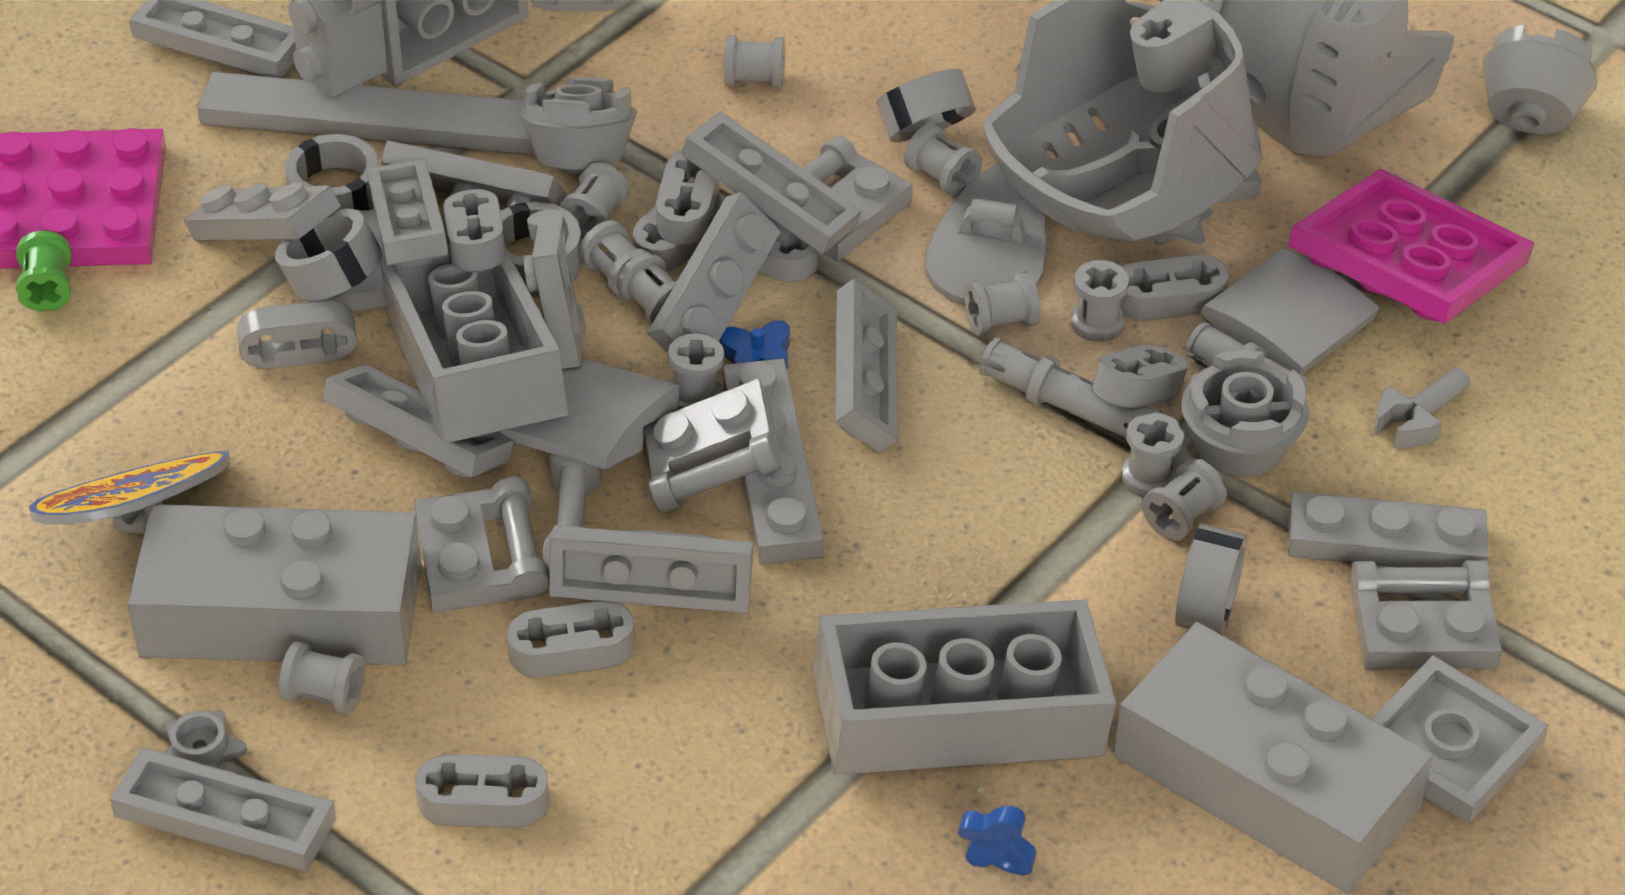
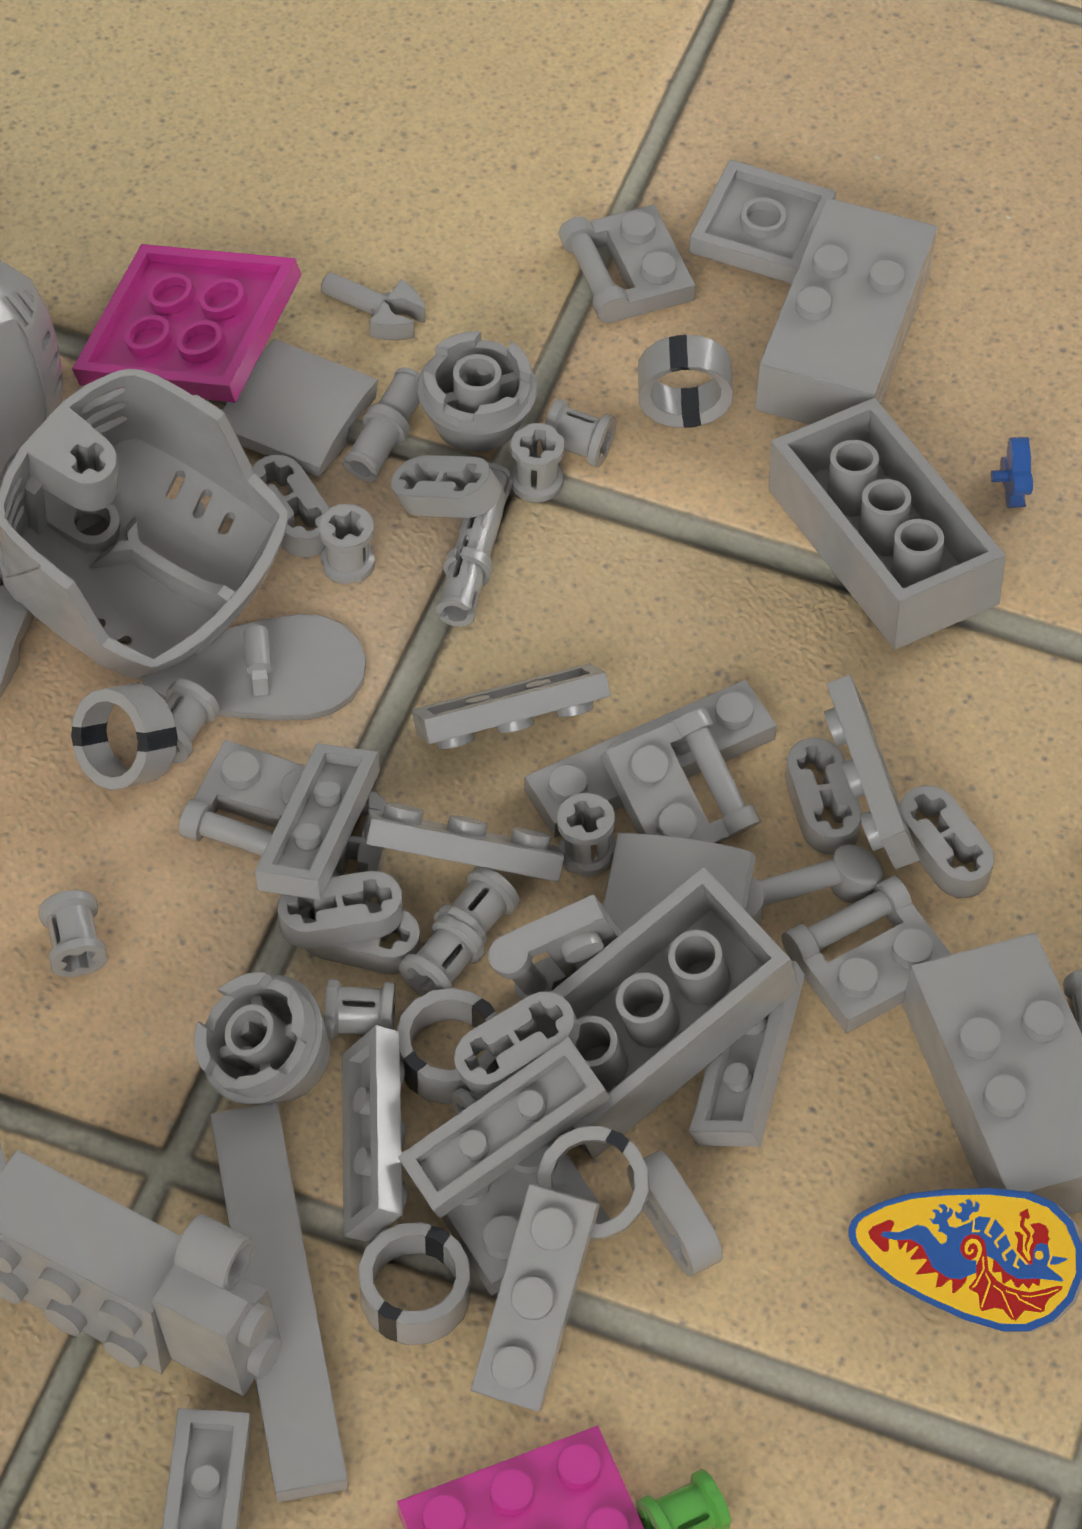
camera: 110 degrees left, 10 degrees up
(759, 345) = (505, 807): blue piece -> none
(1002, 303) = (378, 621): light grey bush -> none
(1385, 531) = (543, 303): light grey plate -> none

